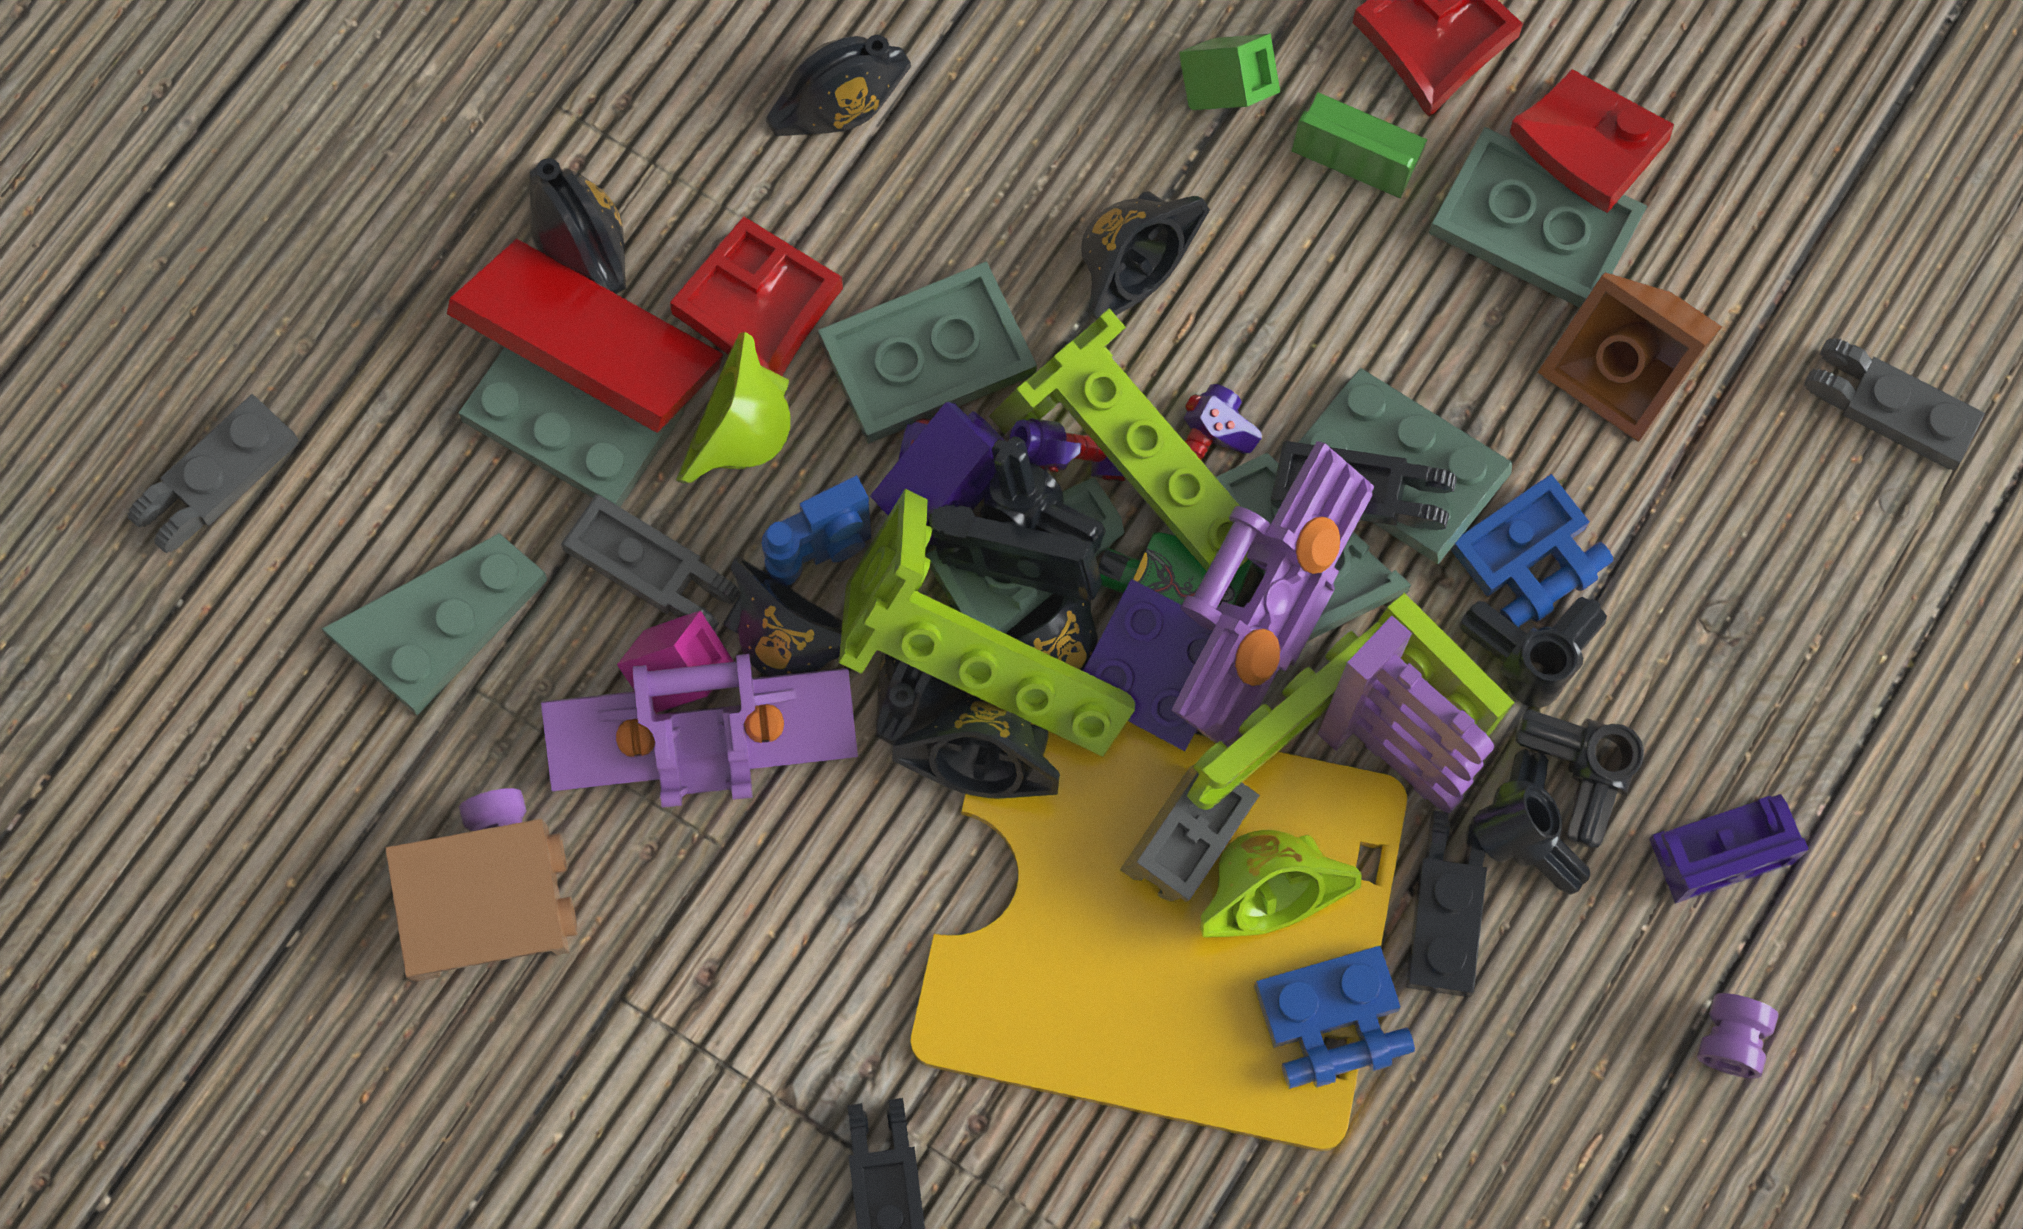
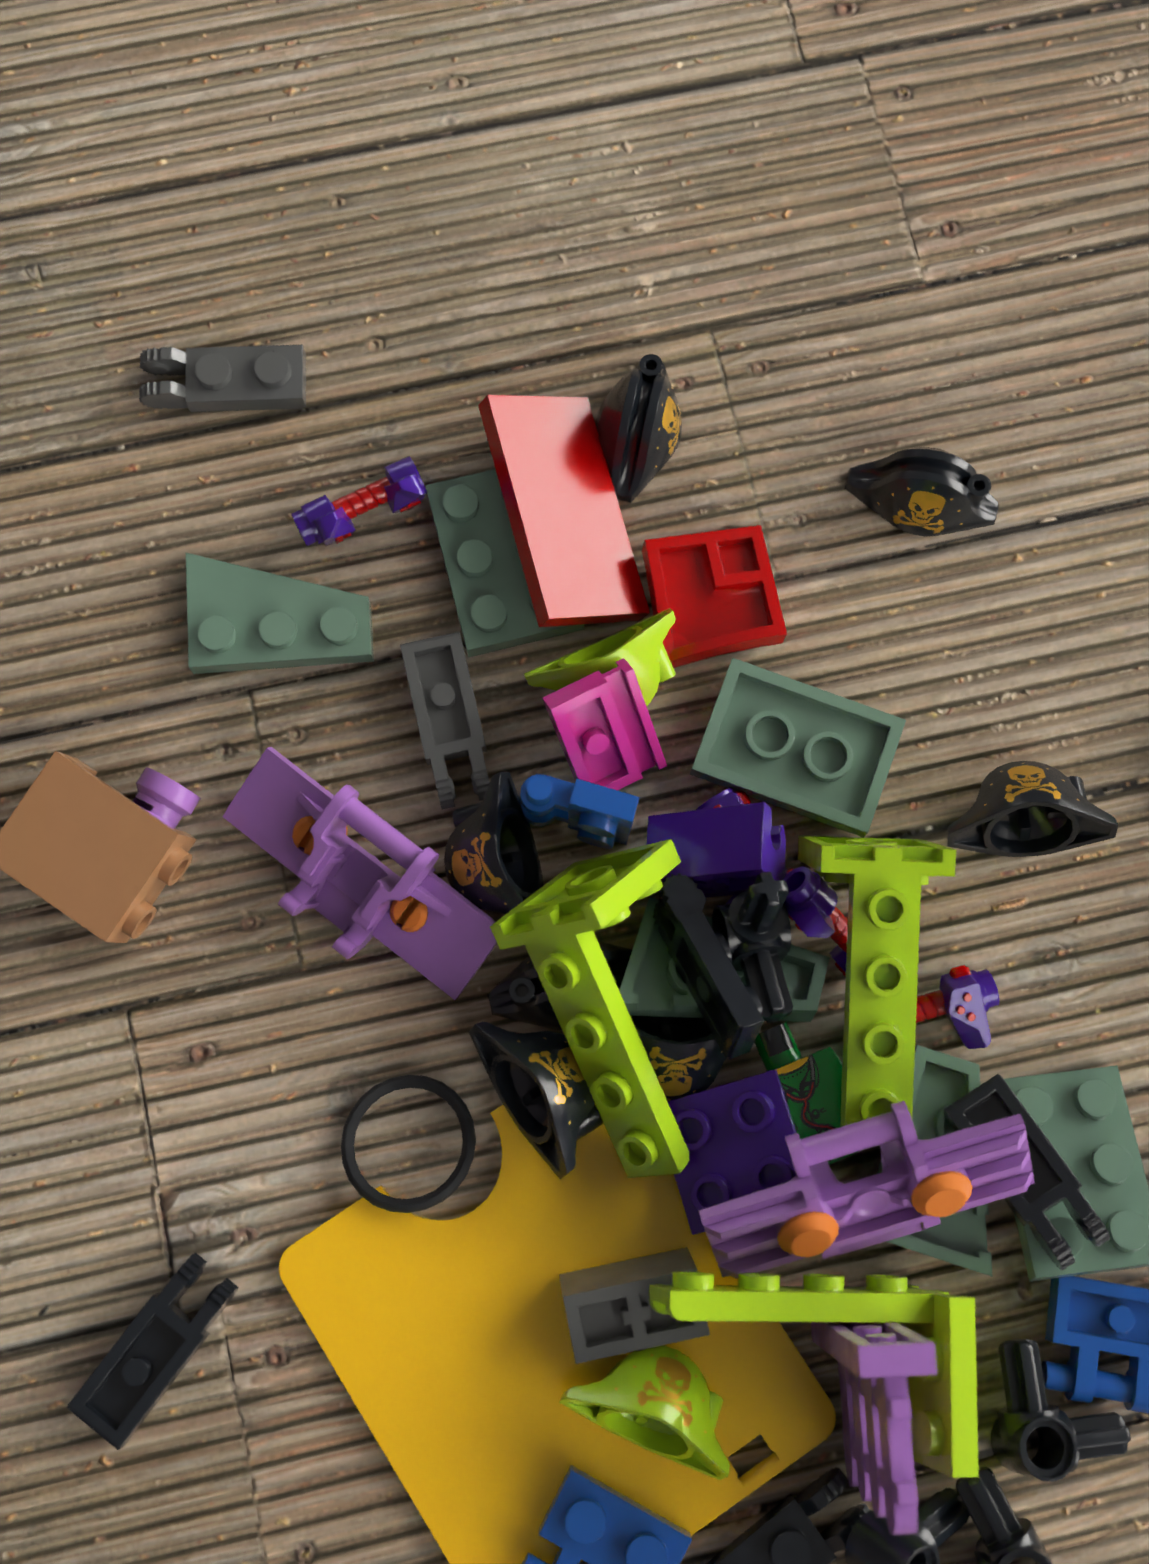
camera: 45 degrees right, 5 degrees up
(412, 504) = (331, 521): none -> dark purple piece
(672, 645) = (402, 798): dark pink panel -> none
(776, 458) = (605, 728): none -> dark pink plate
(960, 930) = (457, 1176): none -> black tyre

